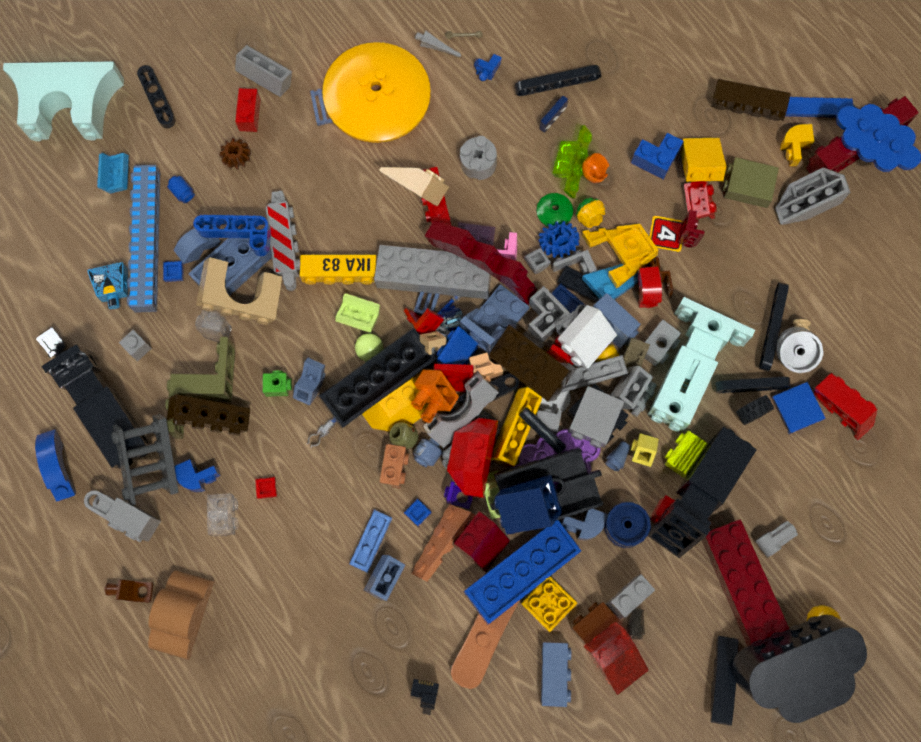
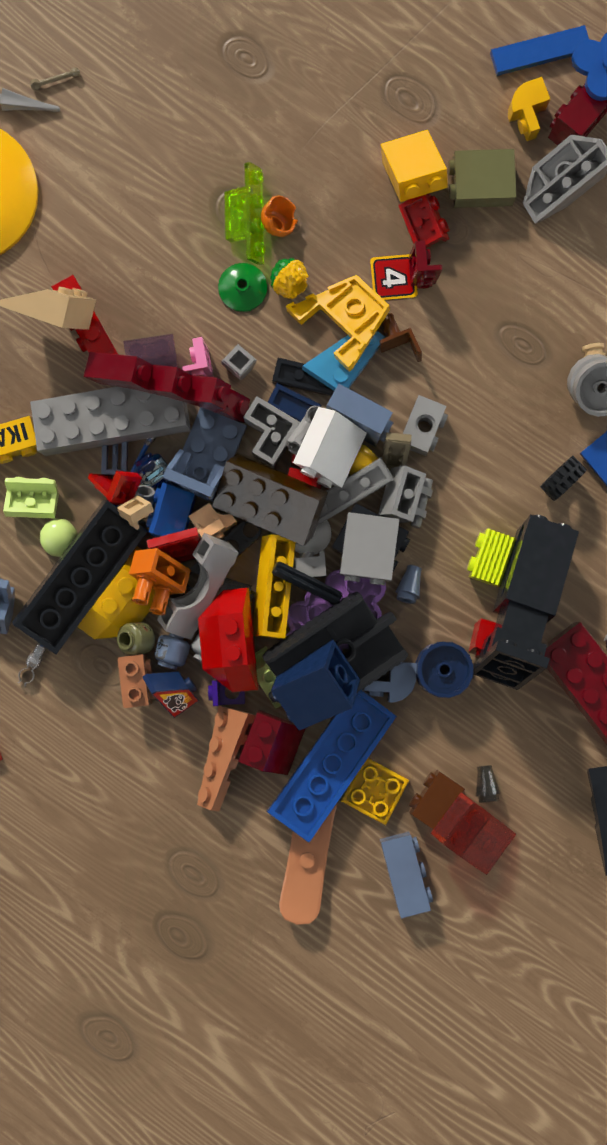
camera: 20 degrees left, 10 degrees up
(370, 541) = (135, 779): medium blue tile -> none
(384, 577) = (165, 822): sand blue brick -> none
(417, 513) = (182, 728): blue tile -> none
(419, 481) = (172, 691): none -> slope
(426, 692) = (257, 944): black piece -> none
(478, 158) = (123, 232): light grey brick -> none
(485, 69) = (101, 119): blue piece -> none
(553, 114) = (204, 156): dark blue tile -> none
(557, 80) = (197, 108): black beam -> none
(559, 239) = (258, 326): blue gear -> none
(587, 265) = (303, 349): light grey bracket -> none
(630, 596) = (471, 757): light grey brick -> none
(644, 449) = (440, 568): light yellow brick -> none
(650, 287) = (391, 357): red brick -> none
(657, 159) = (357, 181): blue brick -> none
(694, 363) = (473, 440): light aqua brick -> none
(750, 100) = (455, 65): dark brown brick -> none
(752, 385) = (552, 445): black beam -> none
(773, 326) = (559, 362): black beam -> none

